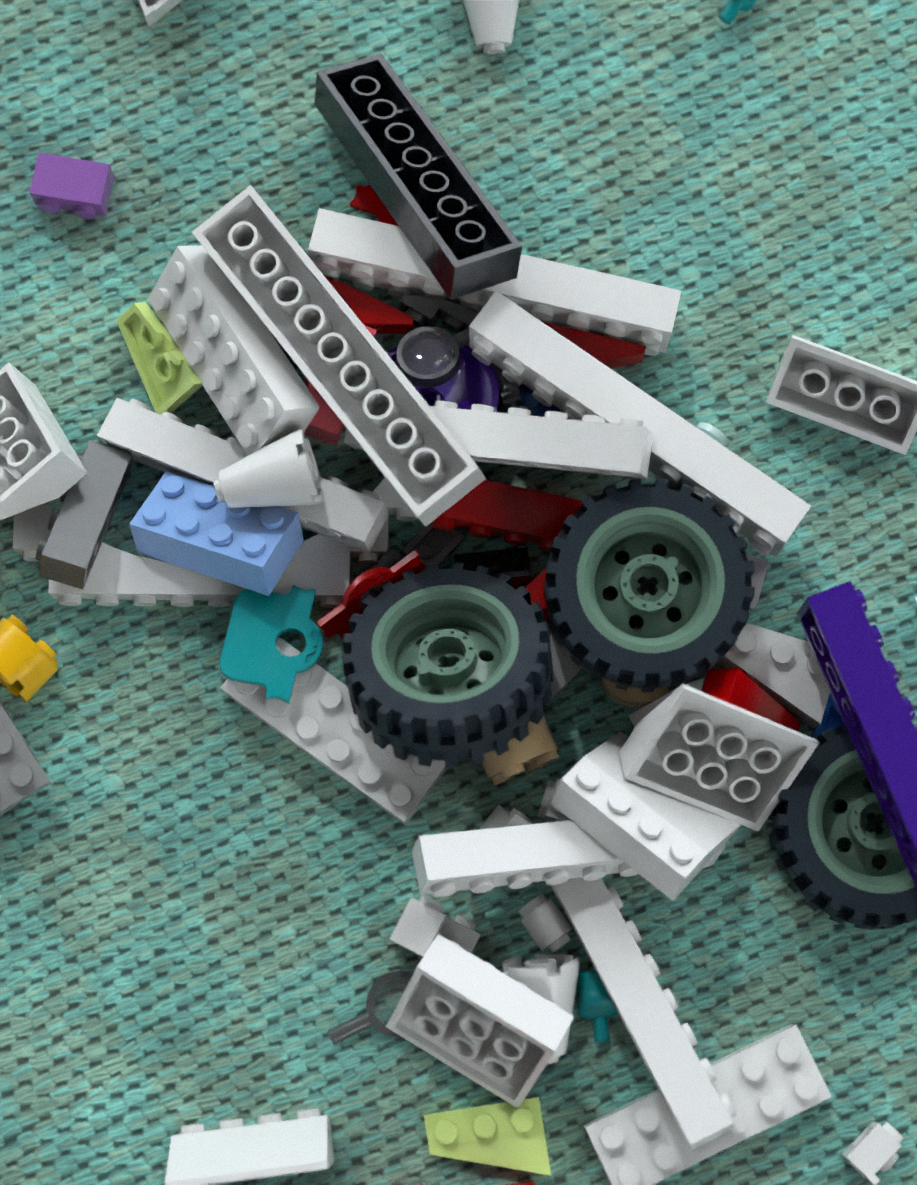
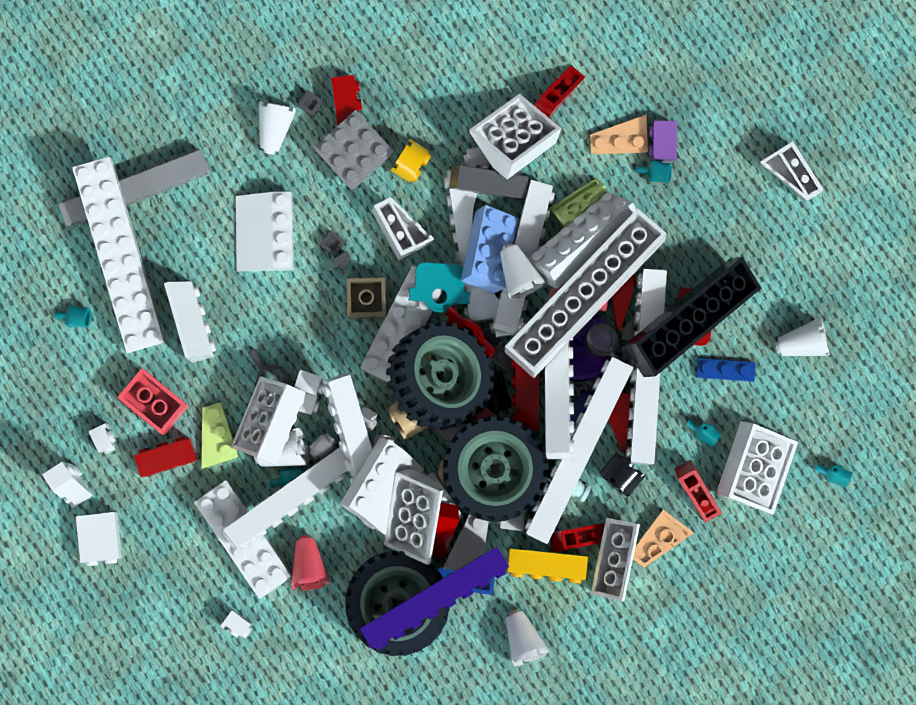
camera: 80 degrees right, 5 degrees up
(52, 262) = (622, 138): none -> light nougat wing
(98, 972) = (264, 232): none -> white slope
(126, 208) = (656, 171): none -> teal piece
(144, 702) = (400, 229): none -> white wedge
(147, 839) = (332, 243): none -> dark grey plate
(186, 826) = (341, 261): none -> dark grey plate
(268, 788) = (366, 298): none -> dark tan brick
(520, 149) = (725, 370): none -> blue plate
(632, 202) = (705, 433): none -> teal piece
(689, 360) = (622, 474): none -> black brick
(708, 123) = (757, 467): none -> white slope
(736, 233) = (697, 490): none -> red slope
(775, 988) = (308, 565): none -> coral cone
(794, 456) = (577, 537): none -> red slope
(810, 310) = (659, 538): none -> light nougat wing
(841, 519) = (547, 564): none -> yellow brick

